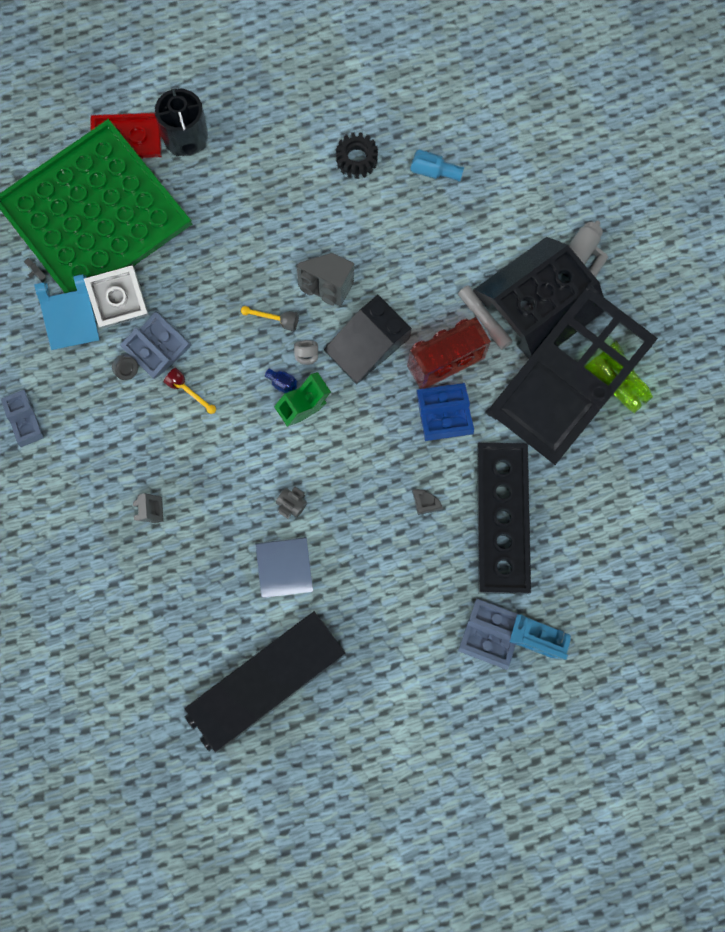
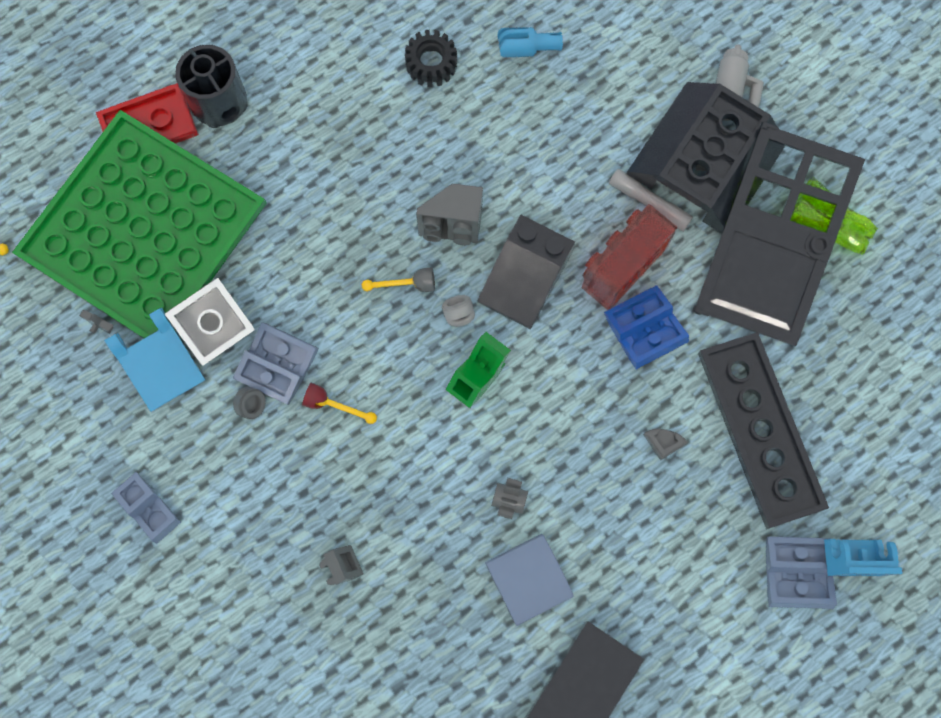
camera: 15 degrees left, 0 degrees up
(282, 380) = (443, 355): clear blue cylinder -> none

